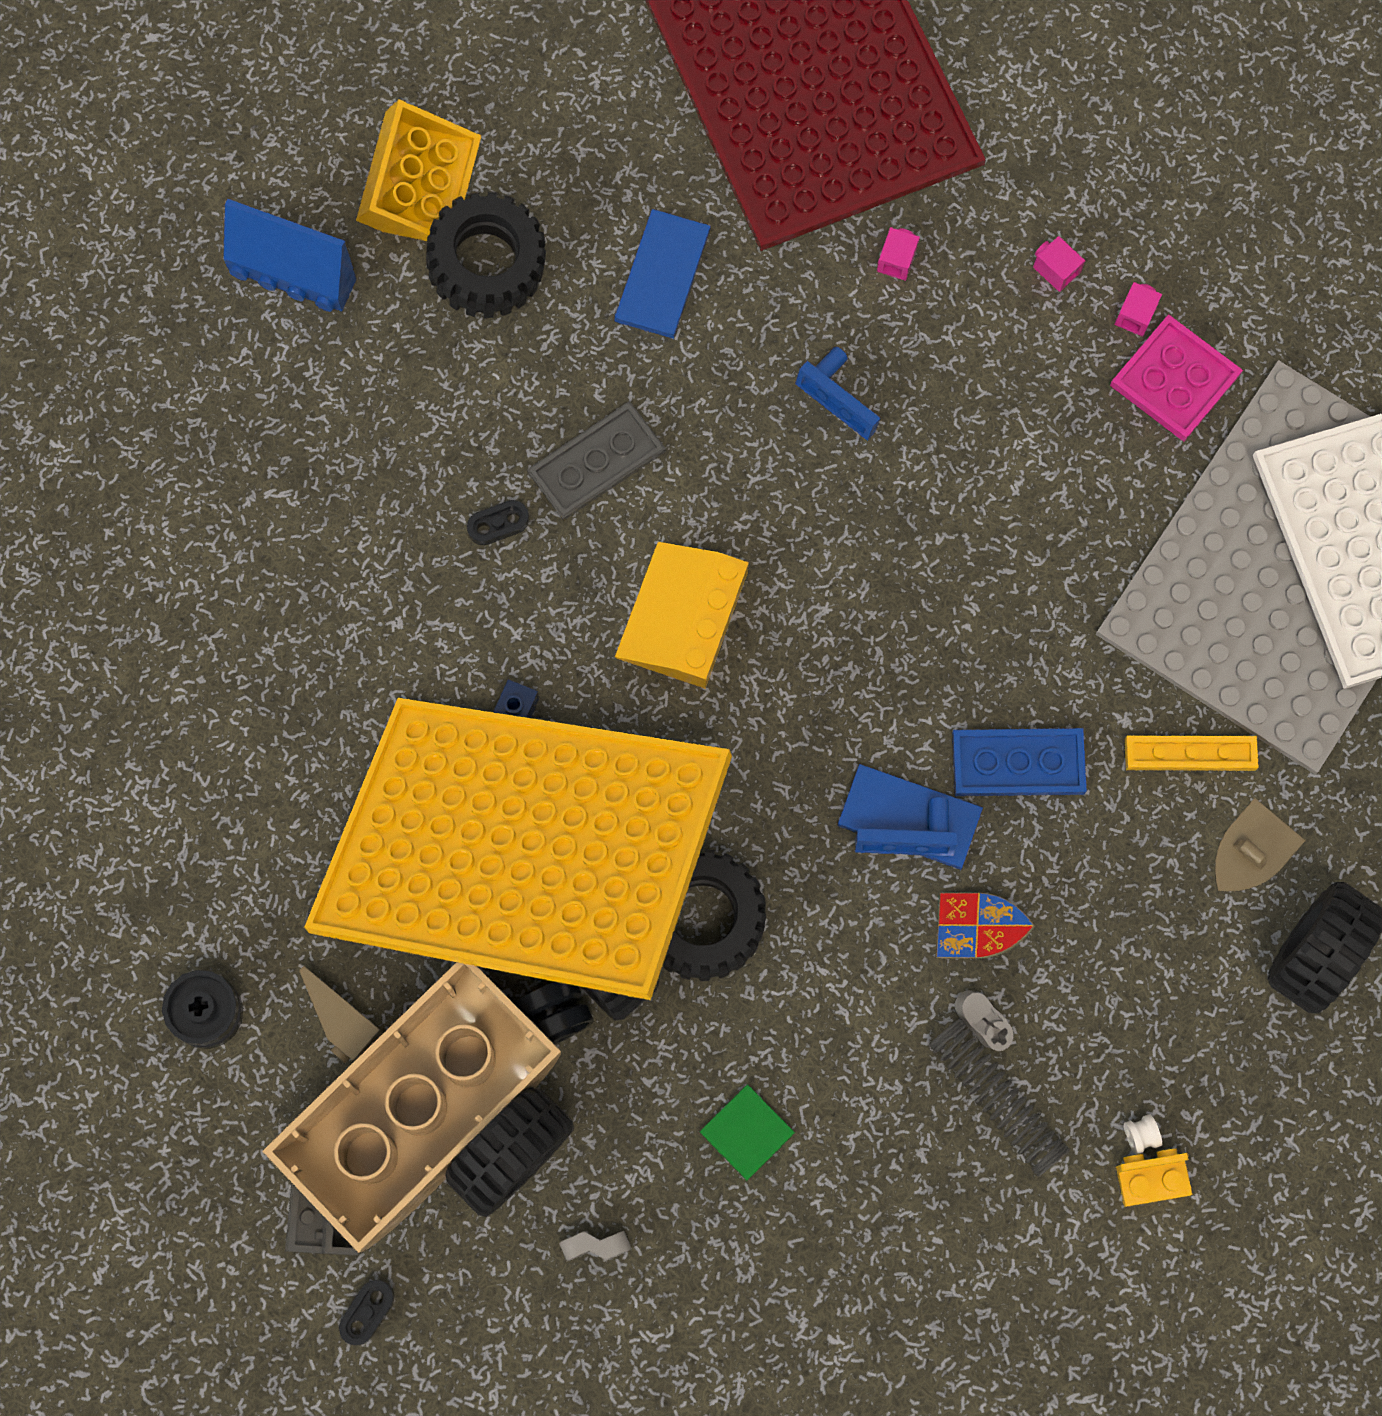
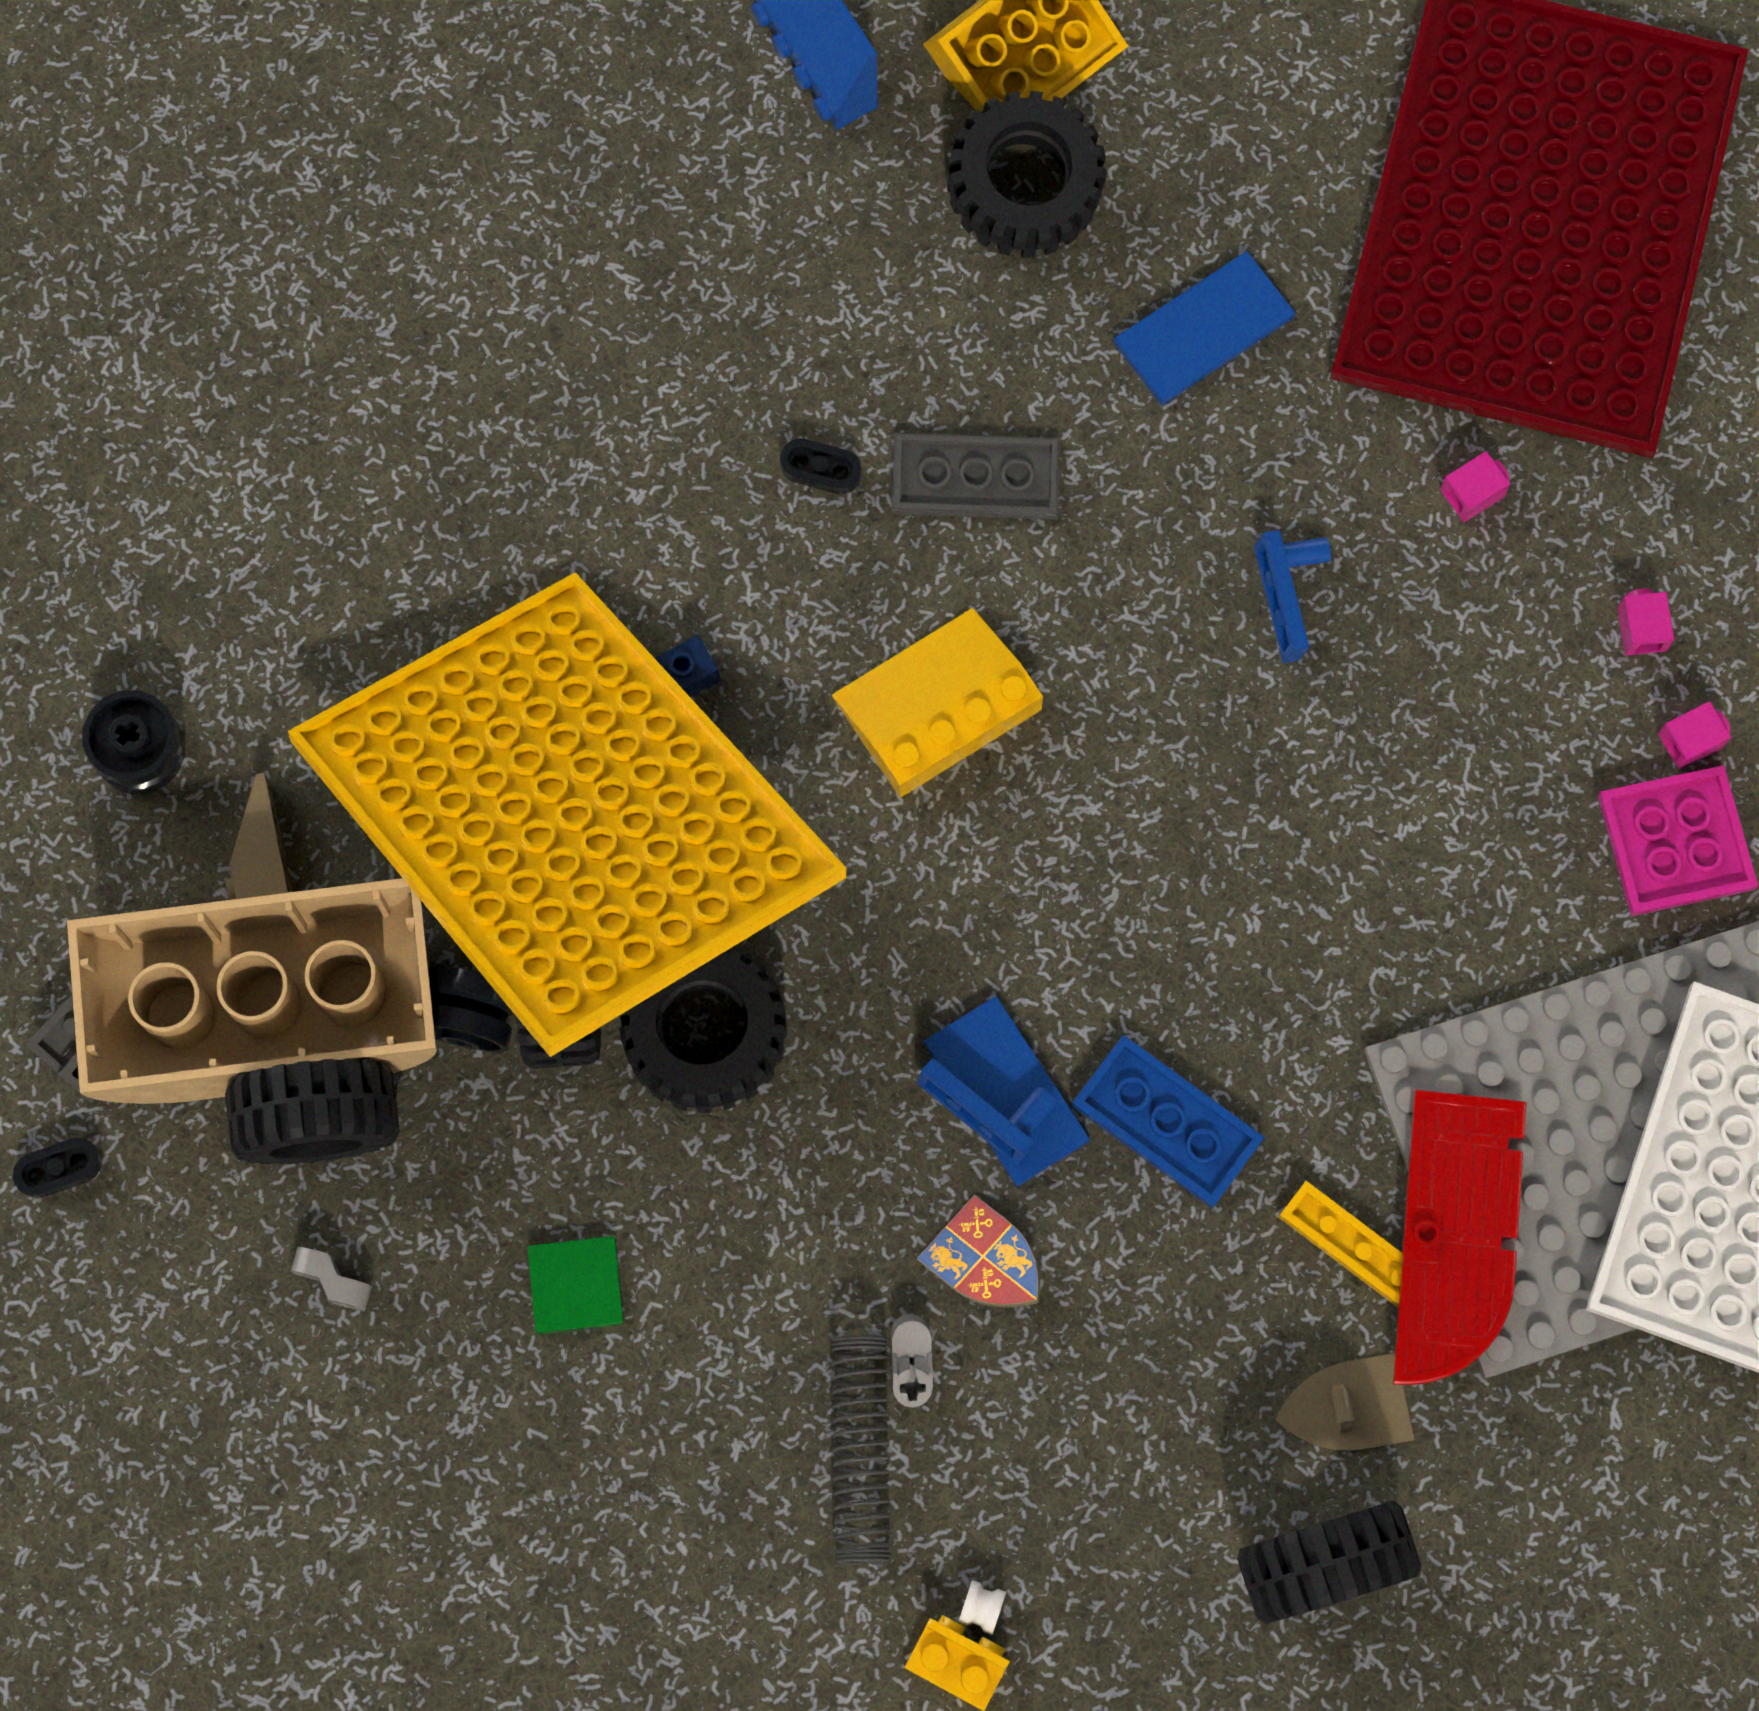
camera: 40 degrees right, 0 degrees up
(1230, 692) = (1456, 1213): none -> red door

